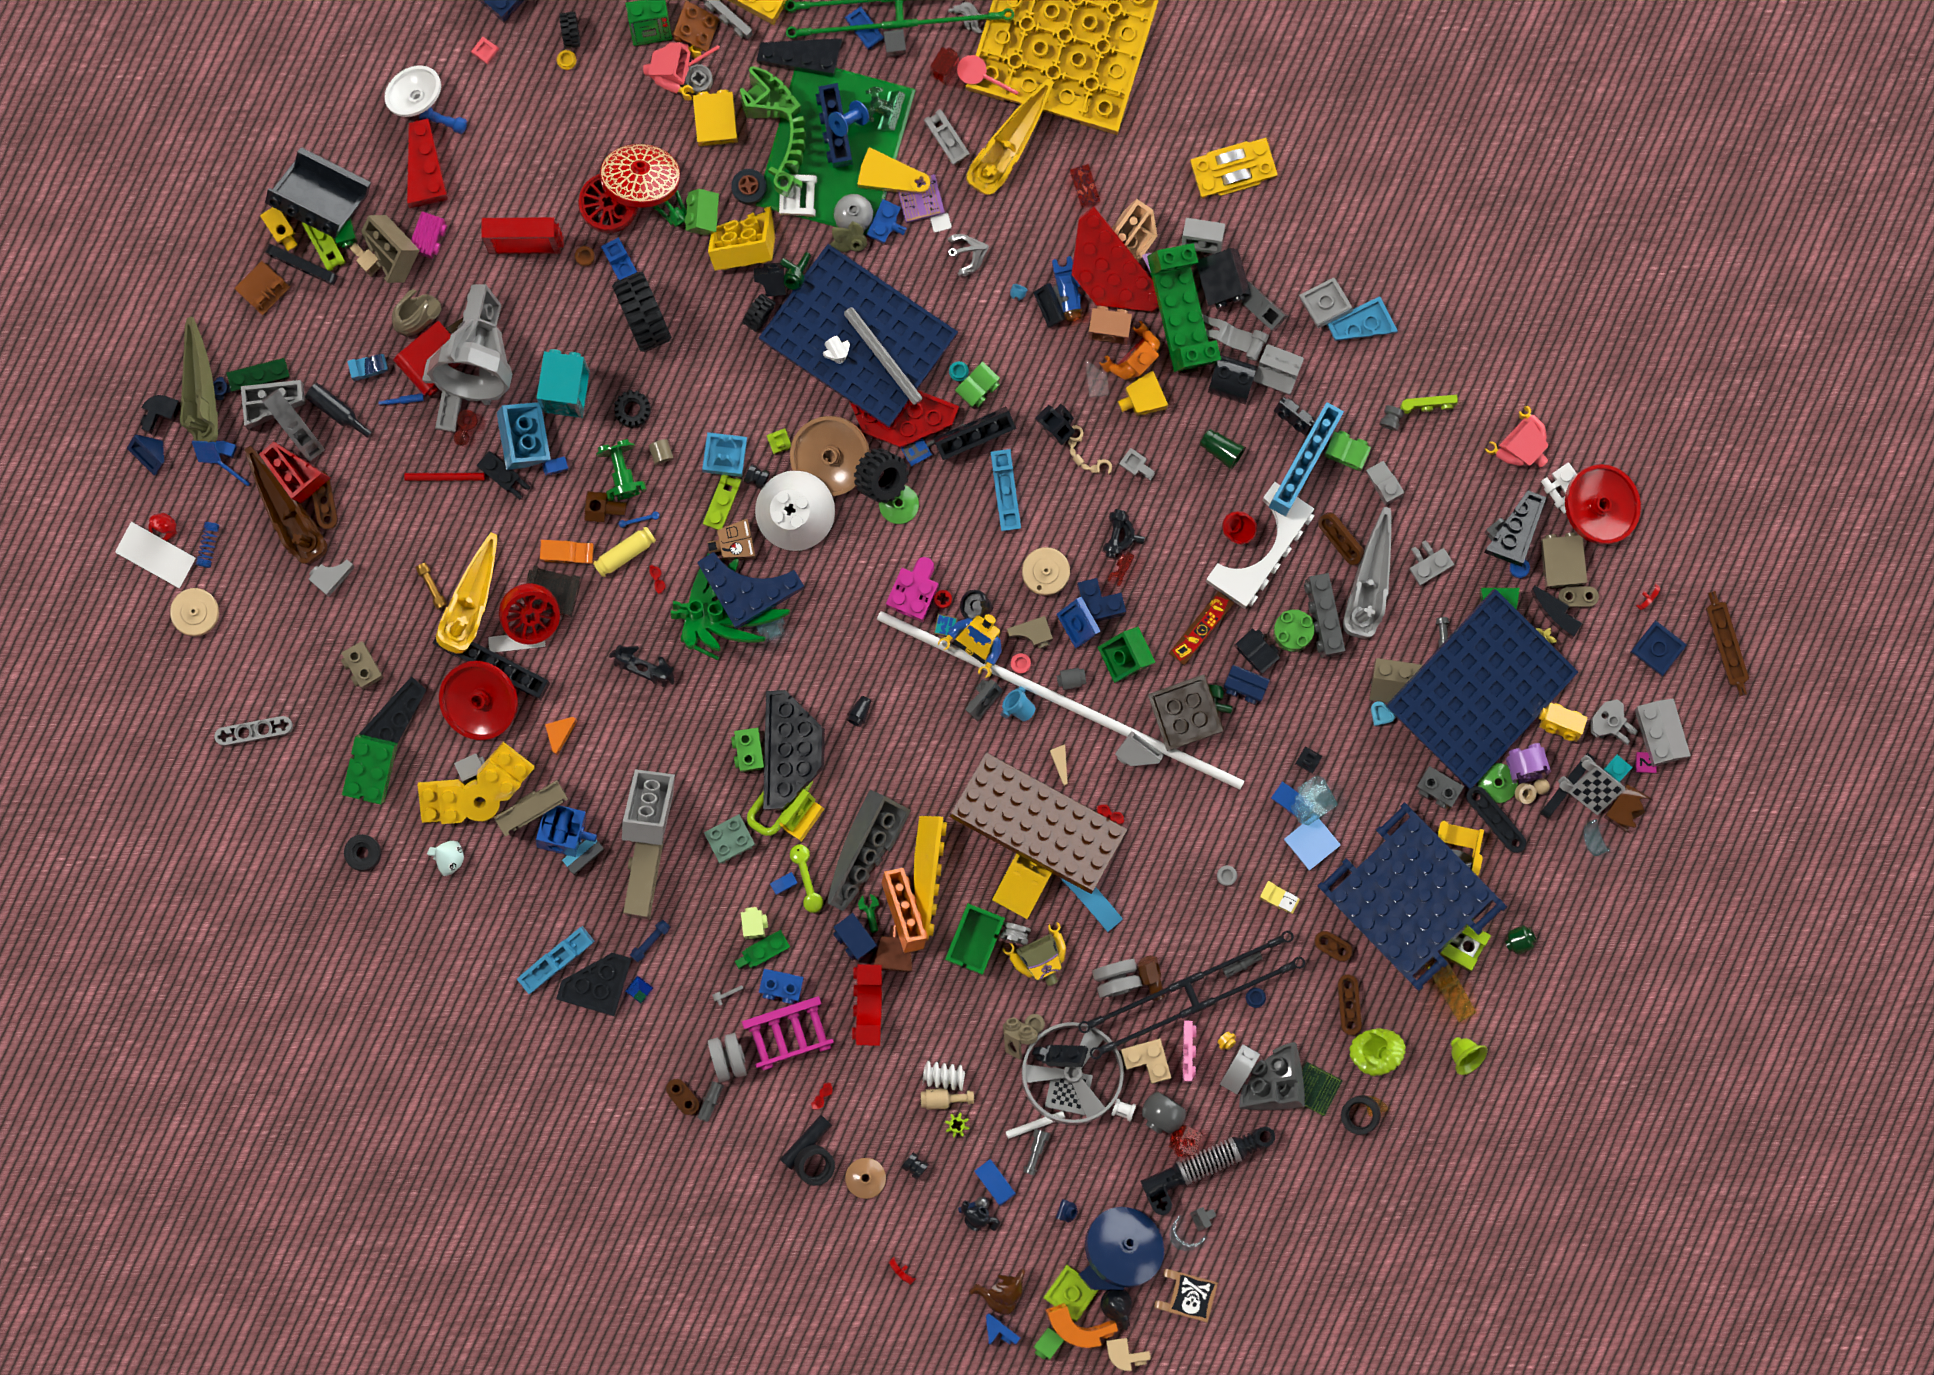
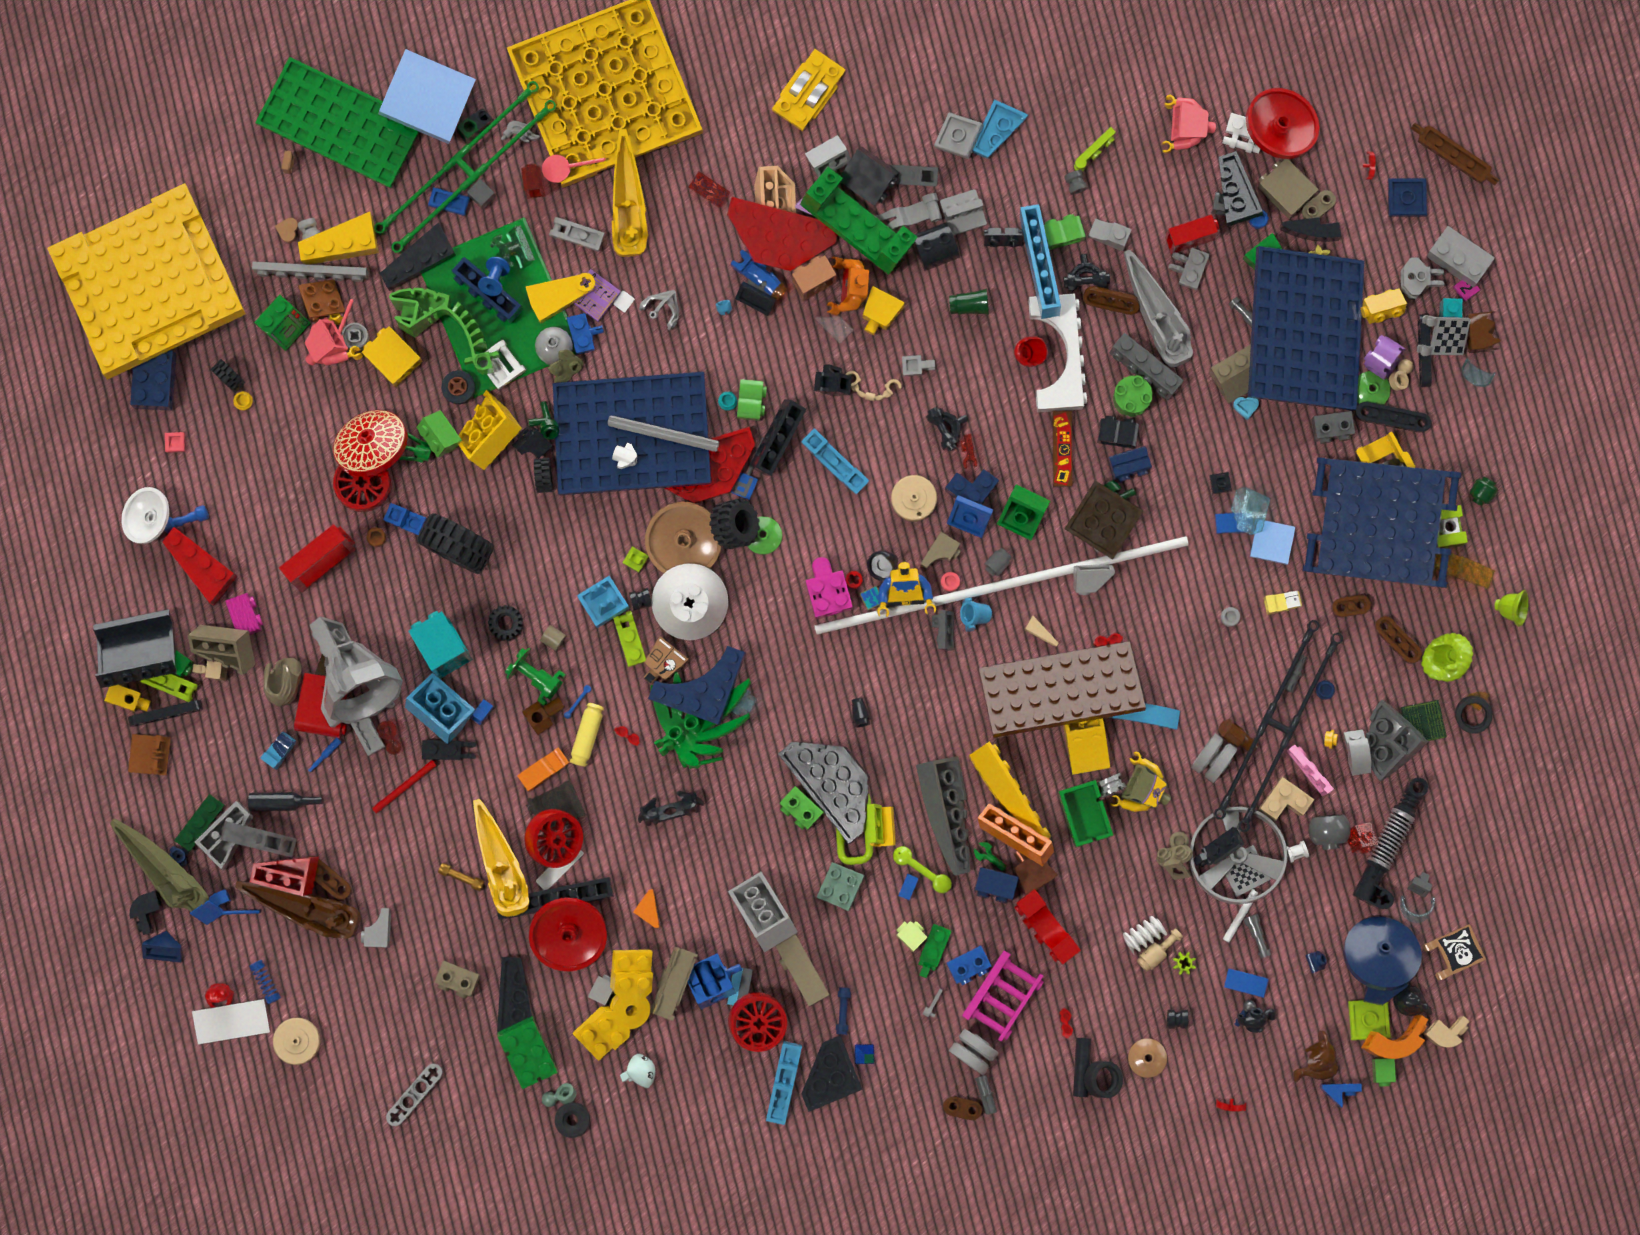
camera: 40 degrees left, 0 degrees up
(373, 827) = (565, 1094): none -> sand green plate
(562, 914) = (761, 1044): none -> red piece
(1345, 512) = (1073, 279): none -> black piece
(1451, 536) = (1192, 234): none -> red brick

